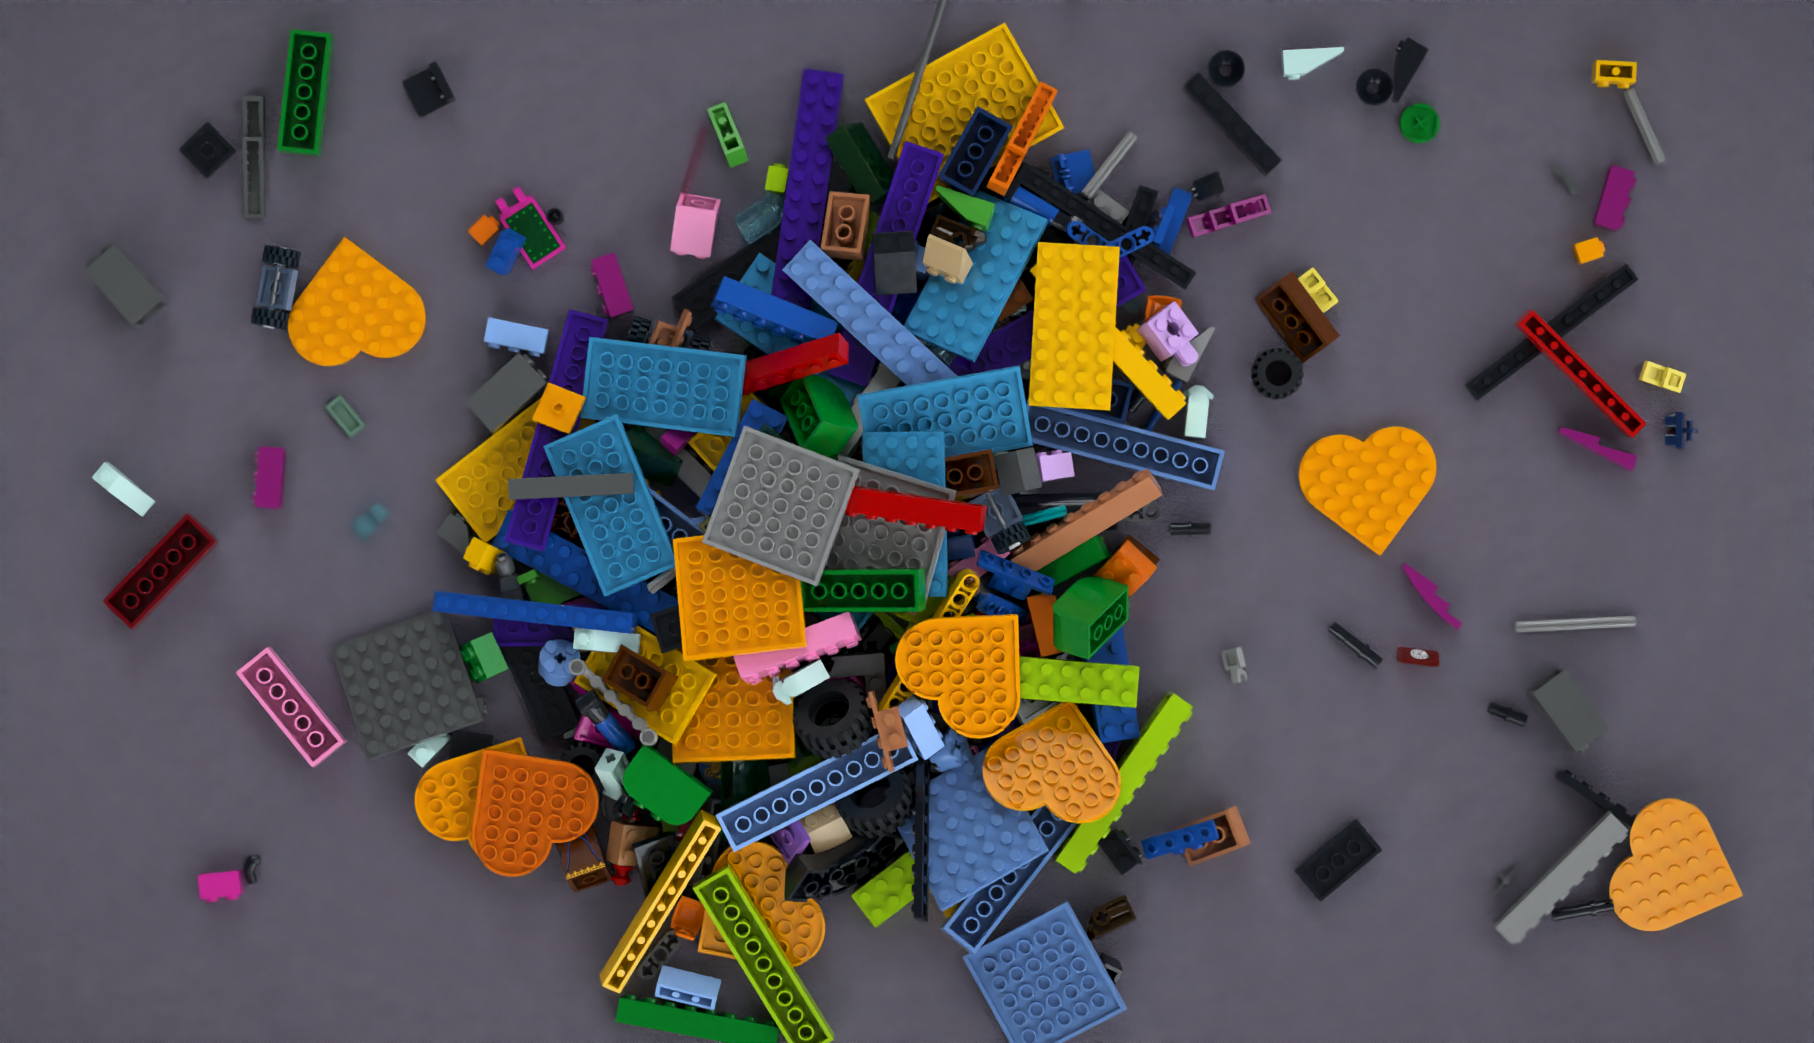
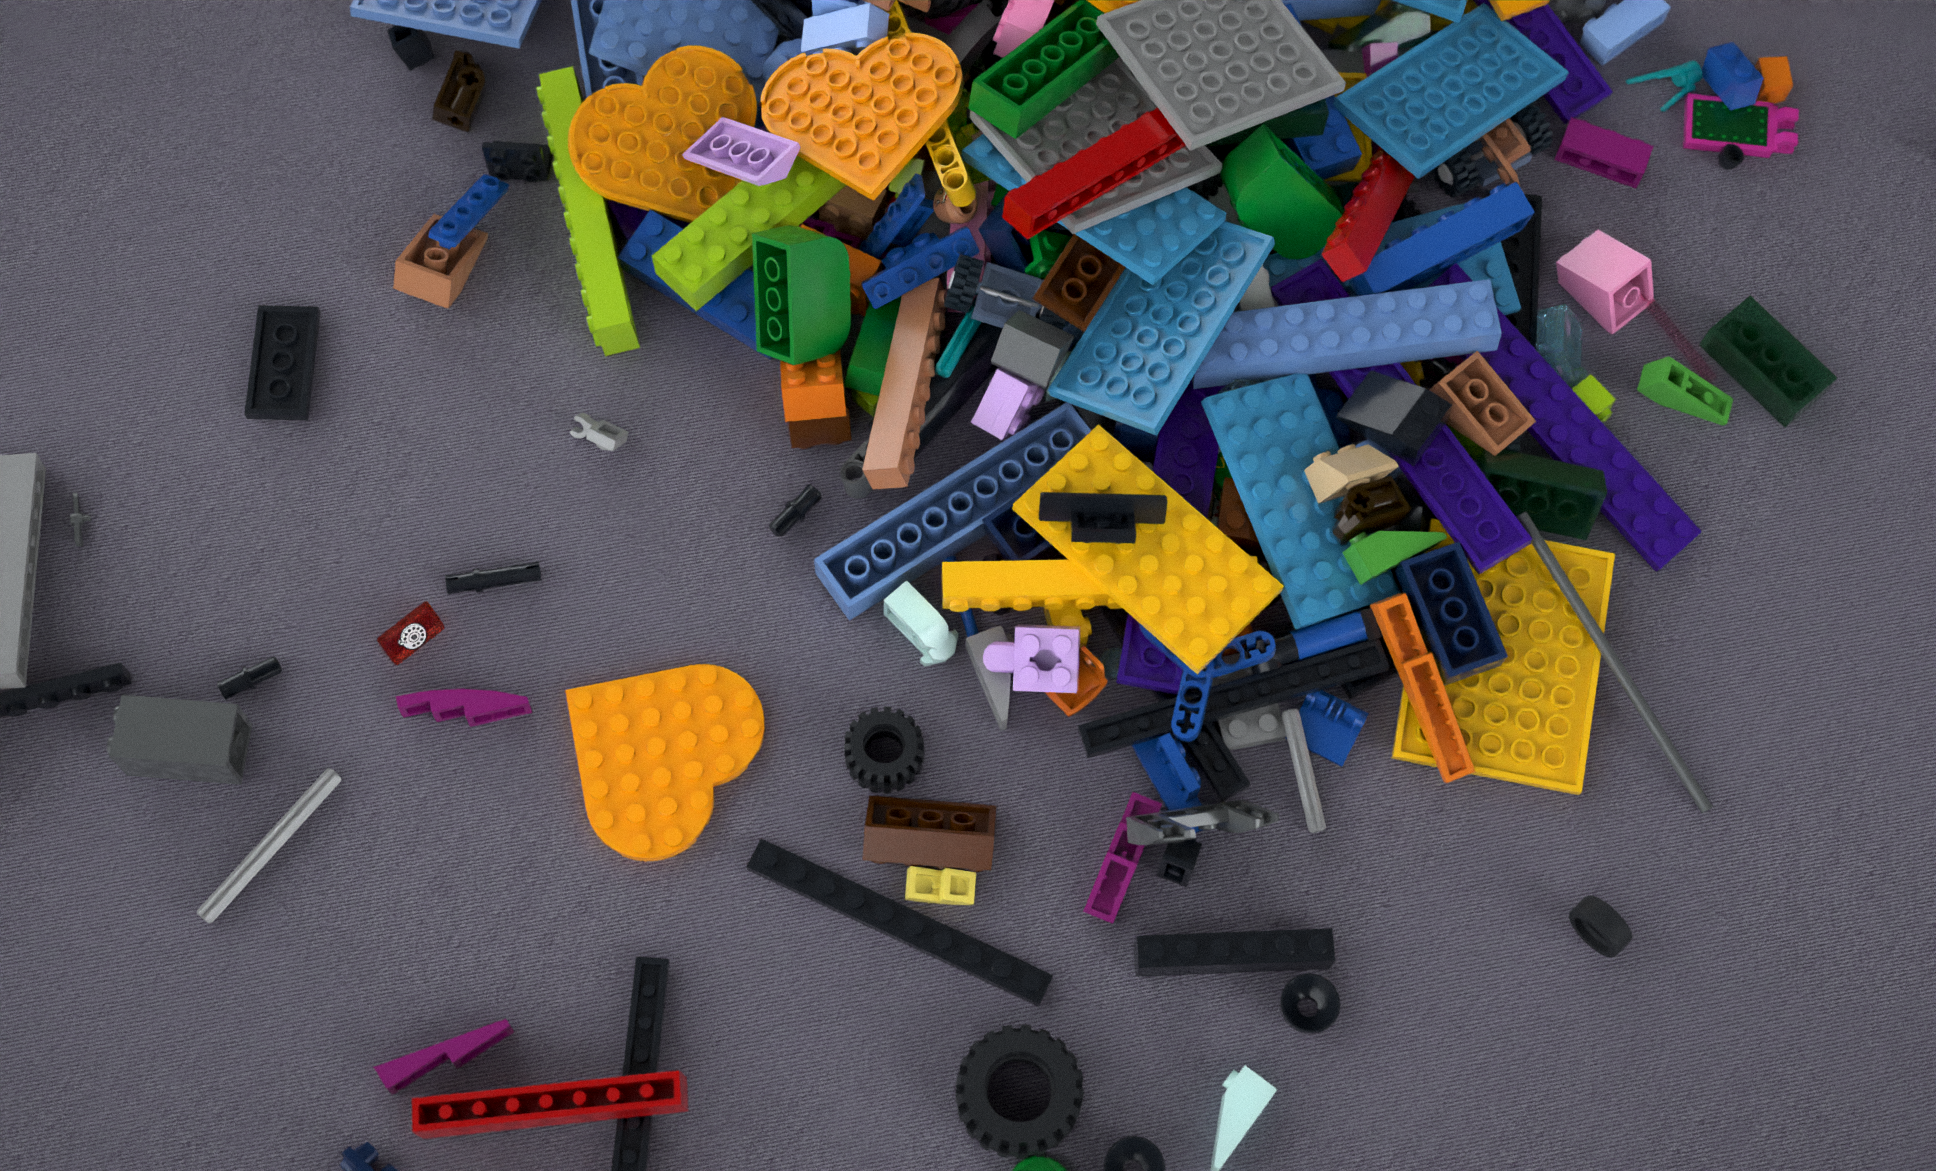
camera: 130 degrees right, 20 degrees down
(521, 279) = (1682, 75): none -> teal plant
(674, 105) = (1767, 361): none -> clear green brick
(1040, 712) = (744, 152): none -> lavender slope
(1085, 355) = (1102, 516): none -> black bracket
(1208, 207) = (1177, 824): none -> dark grey wedge
(1351, 295) = (900, 922): none -> black plate
(1401, 144) = (1029, 1047): none -> black tyre

